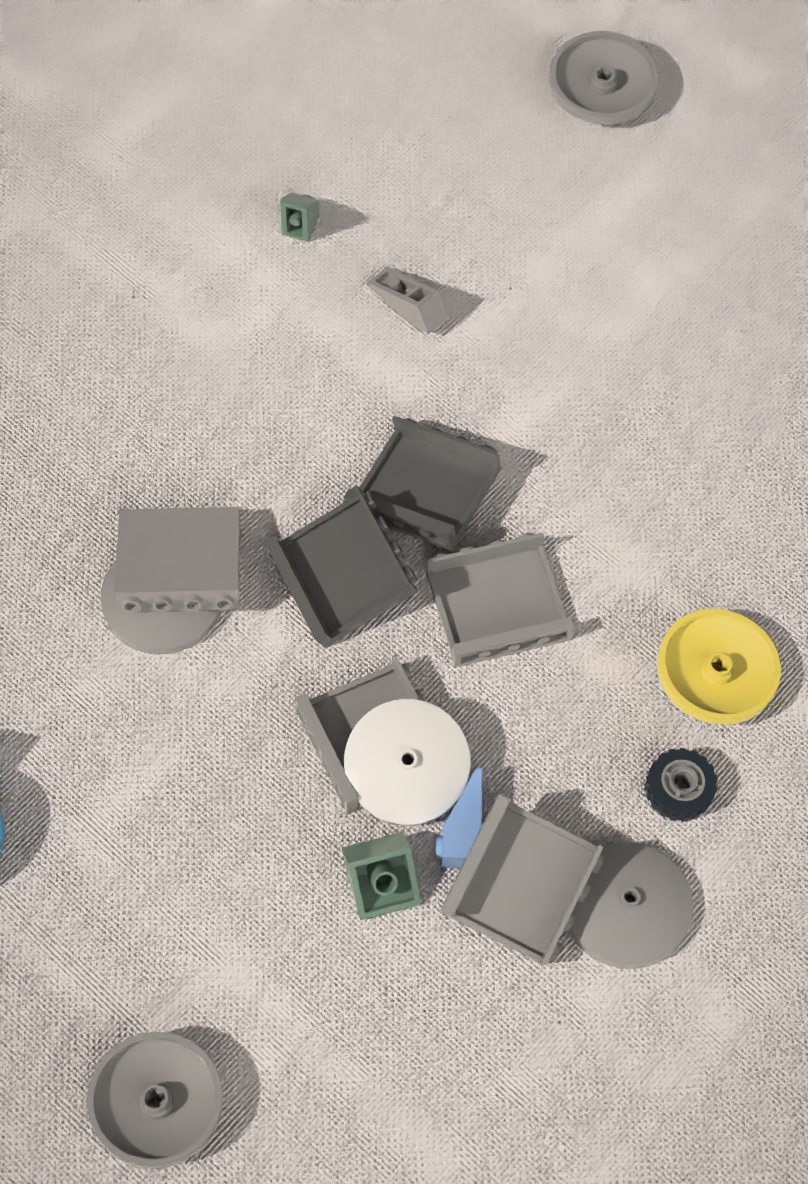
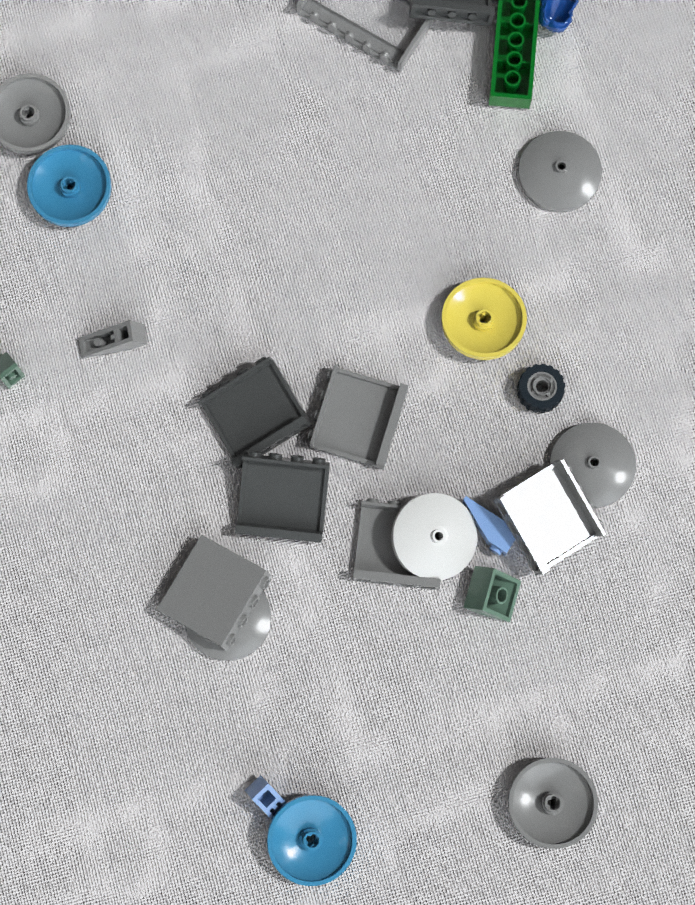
camera: 55 degrees left, 15 degrees up
(552, 158) = (67, 168): none -> dark azure dish

